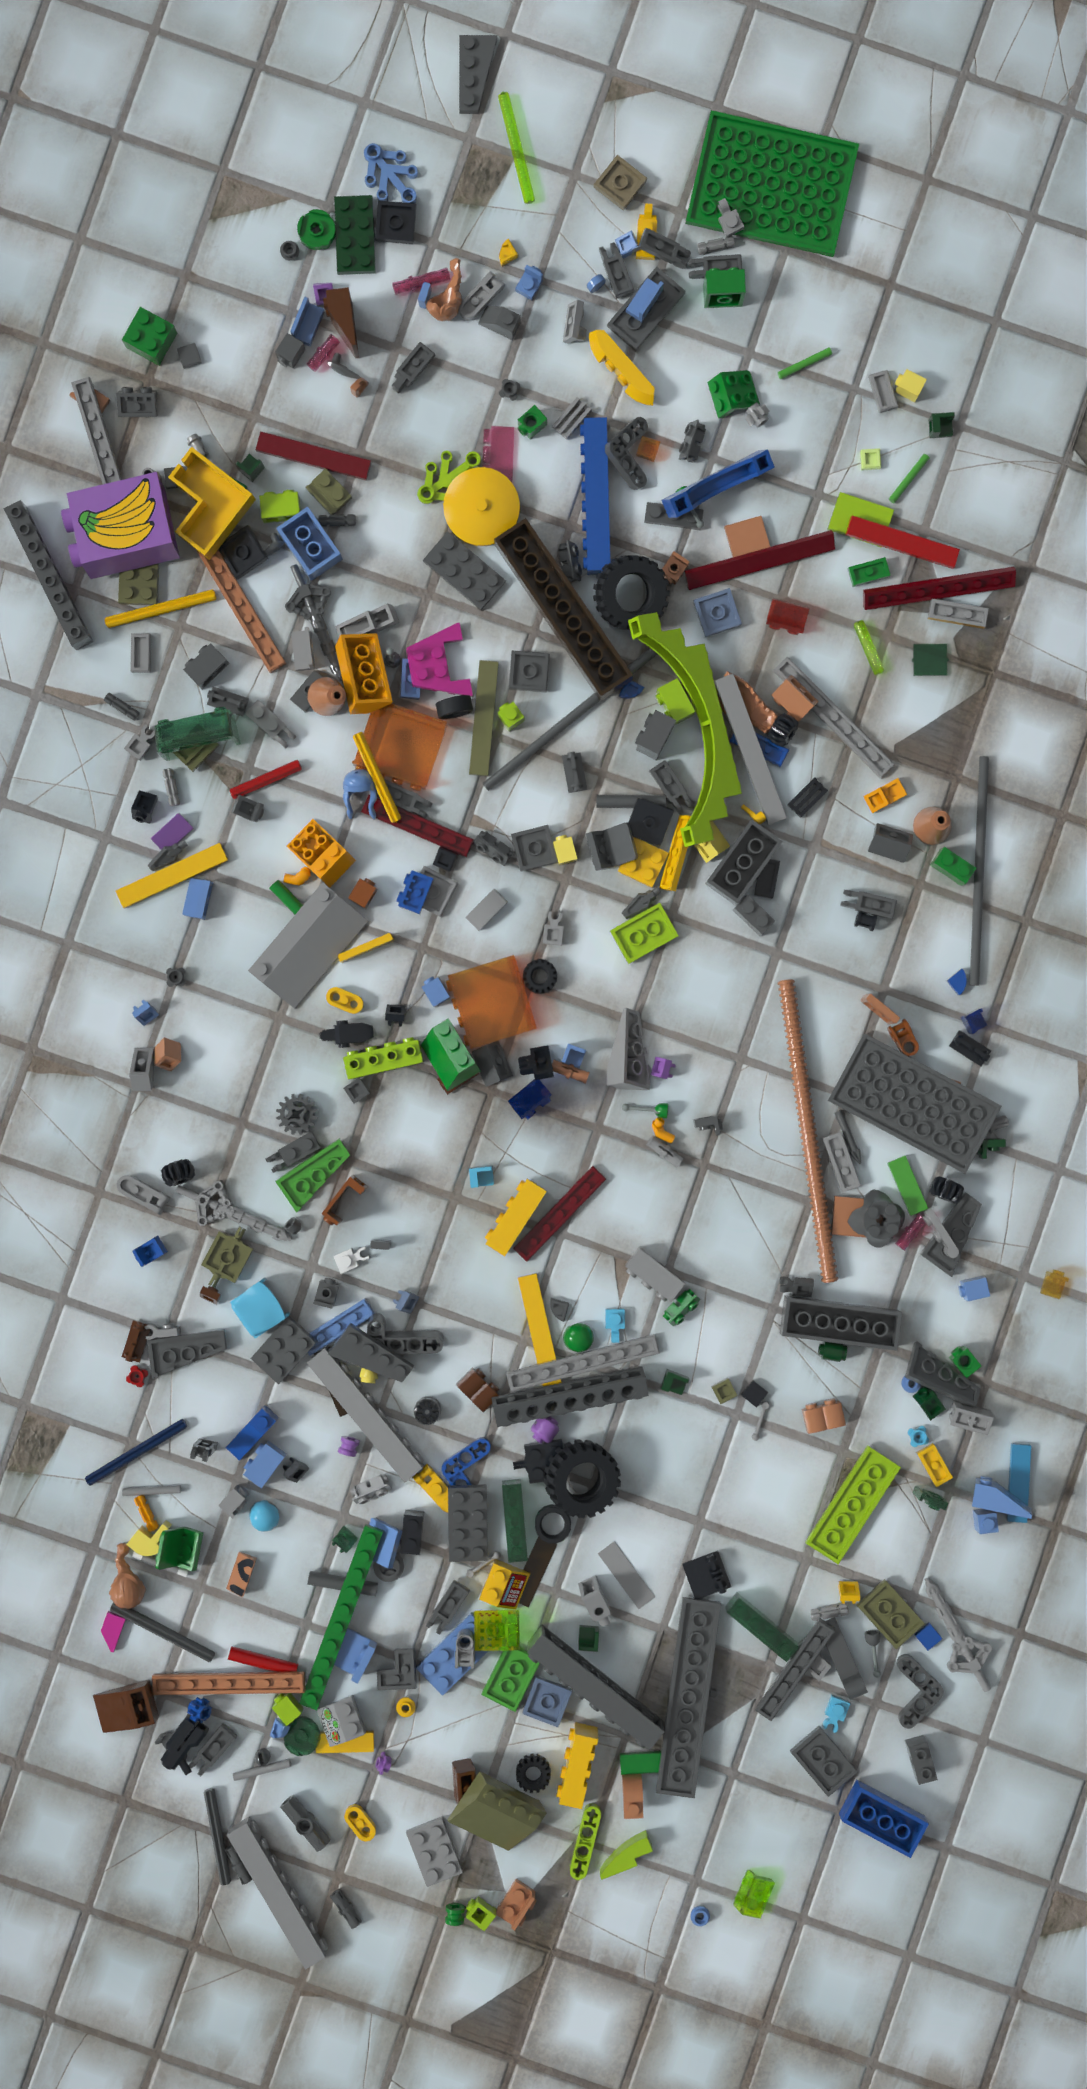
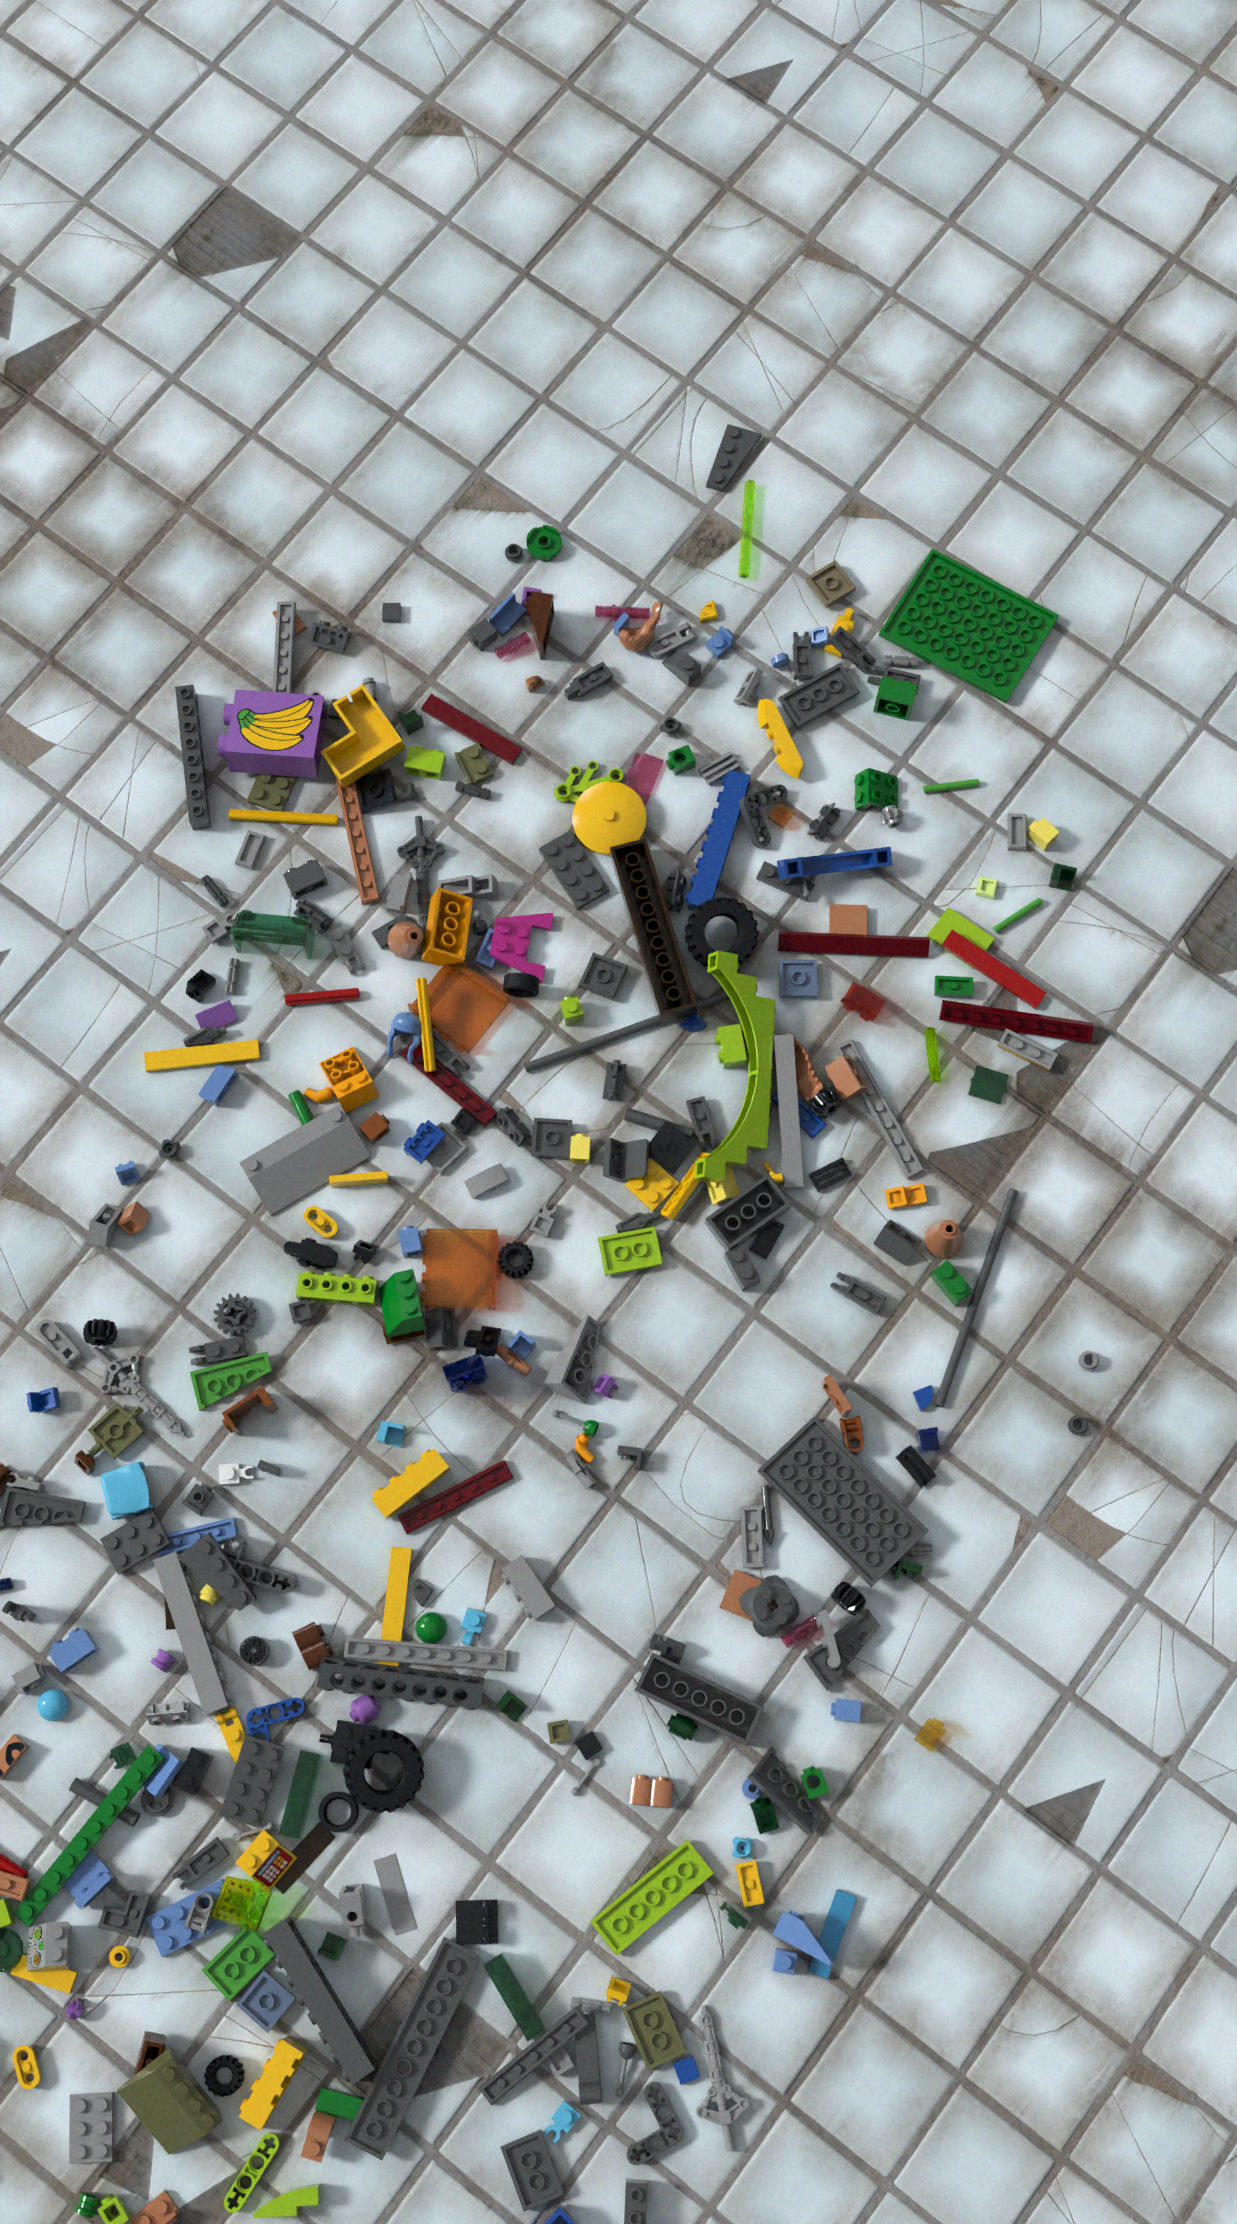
camera: 20 degrees right, 15 degrees down
(149, 336) = (362, 585): green brick -> none
(196, 756) = (266, 953): olive plate -> none
(248, 809) = (295, 1017): dark grey bracket -> none
(252, 1432) = (73, 1614): blue slope -> none
(293, 1226) = (191, 1422): dark grey hinge -> none
(295, 1471) = (101, 1668): black tile -> none
(309, 543) = (439, 801): medium blue brick -> none
(341, 369) = (519, 658): dark grey bar -> none
(354, 234) = (576, 557): dark green plate -> none
(389, 172) = (626, 515): medium blue plant -> none
(395, 222) = (616, 557): black plate -> none
(407, 1301) = (274, 1533): sand blue tile -> none
(483, 718) = (545, 1006): olive tile -> none
(644, 299) = (819, 686): medium blue panel -> none
(654, 737) = (701, 1068): dark grey brick -> none
(676, 1313) = (536, 1636): green hinge -> none
(681, 565) = (776, 923): nougat brick -> none
(730, 220) = (919, 644): light grey plate -> none
(808, 1131) = (728, 1497): nougat piece -> none
(865, 920) = (849, 1308): black bush -> none
(907, 1185) = (811, 1582): bright green tile -> none
(972, 1419) = (802, 1845): light grey hinge -> none

